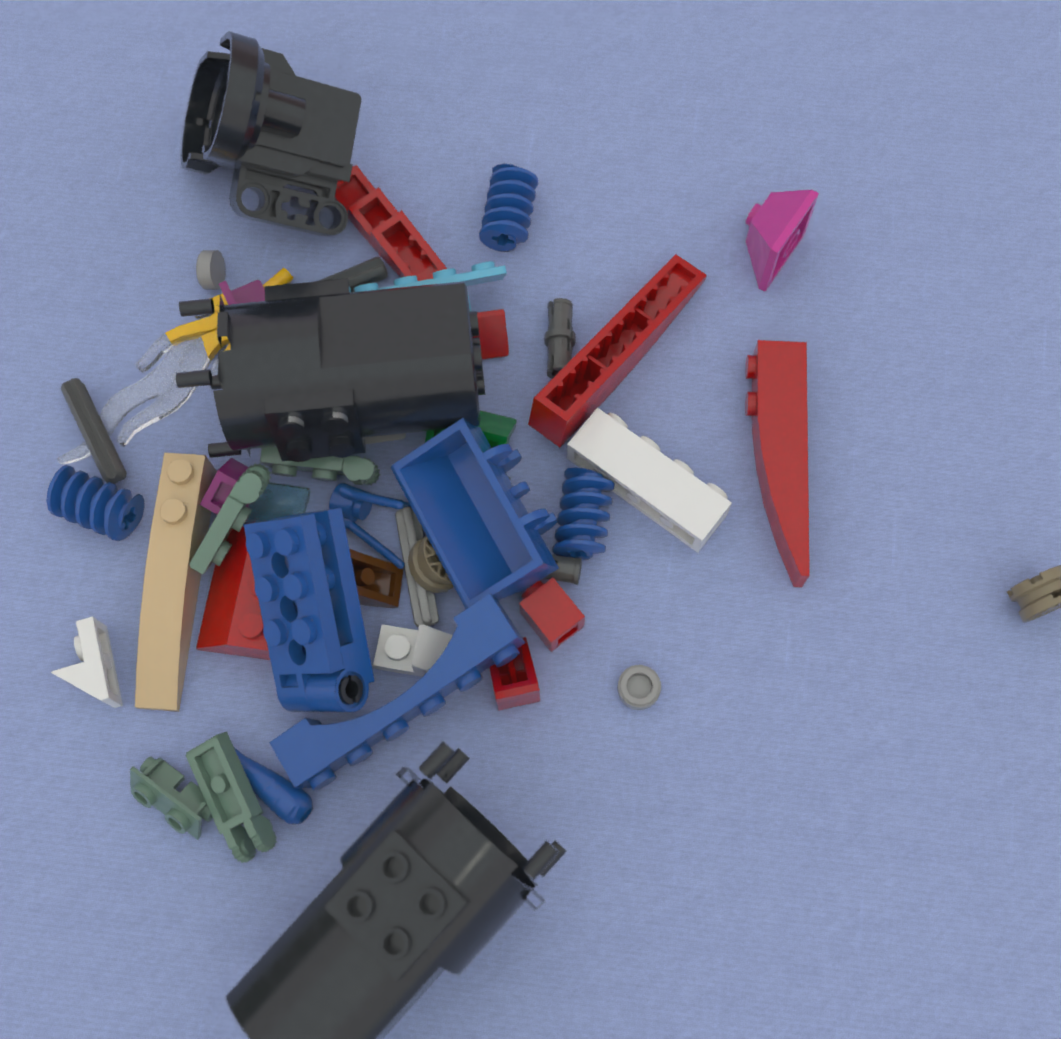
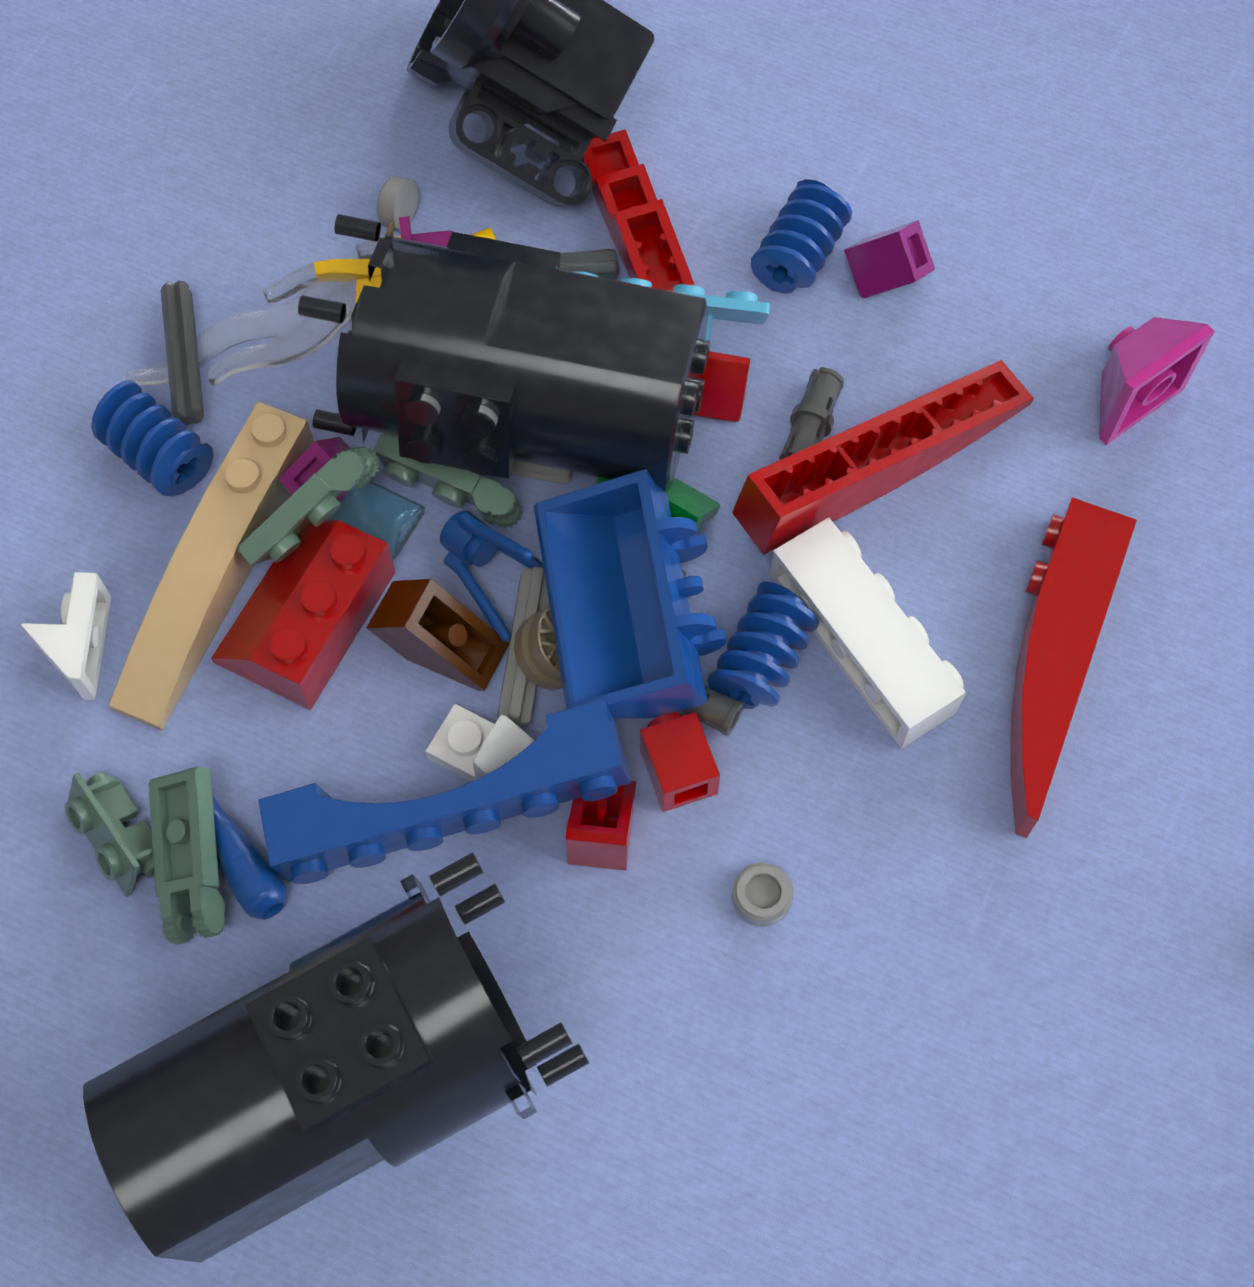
camera: 15 degrees right, 5 degrees down
(310, 611) = (368, 649): blue hinge -> none
(574, 204) = (889, 259): none -> magenta panel

